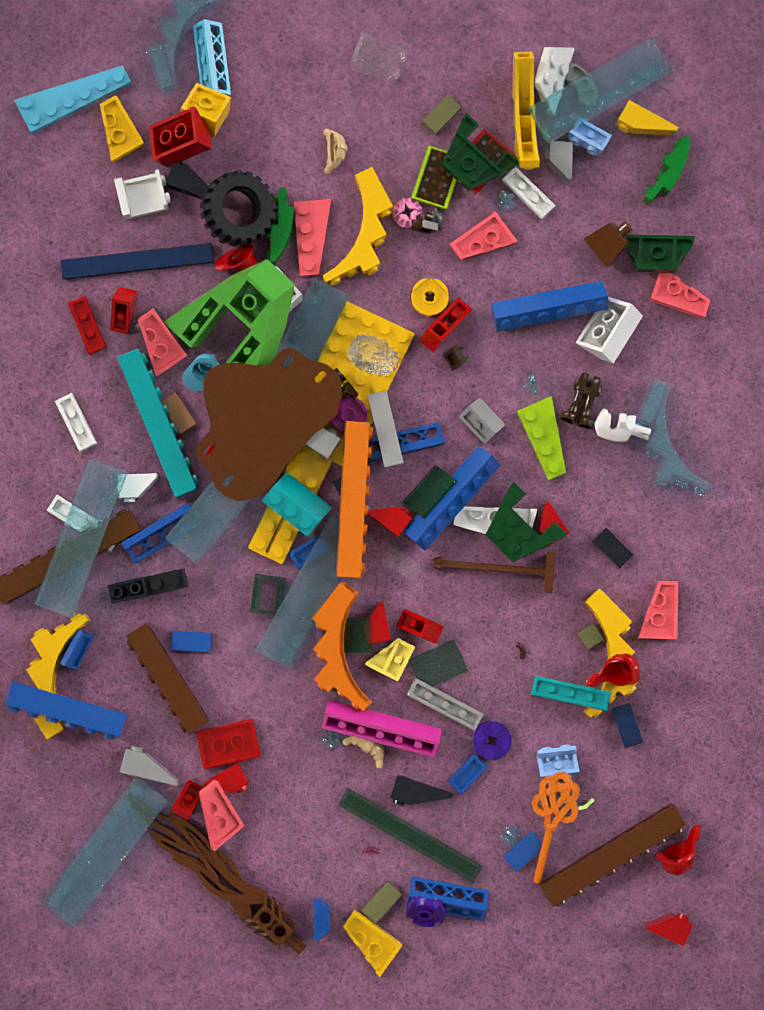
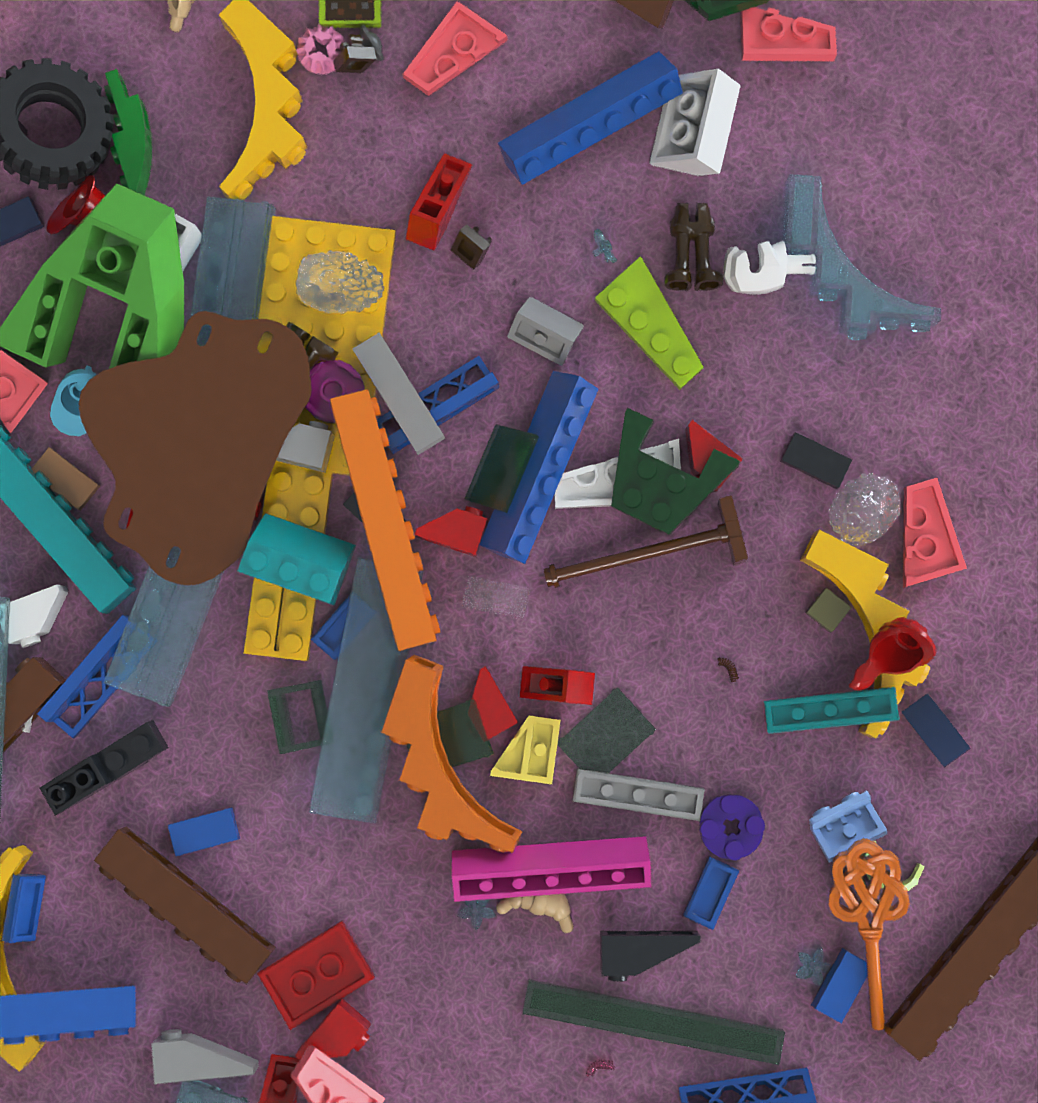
camera: 15 degrees left, 0 degrees up
(311, 228) = (180, 125): coral wing -> none
(429, 286) = (395, 150): yellow plate -> none
(632, 585) = (868, 505): none -> clear piece

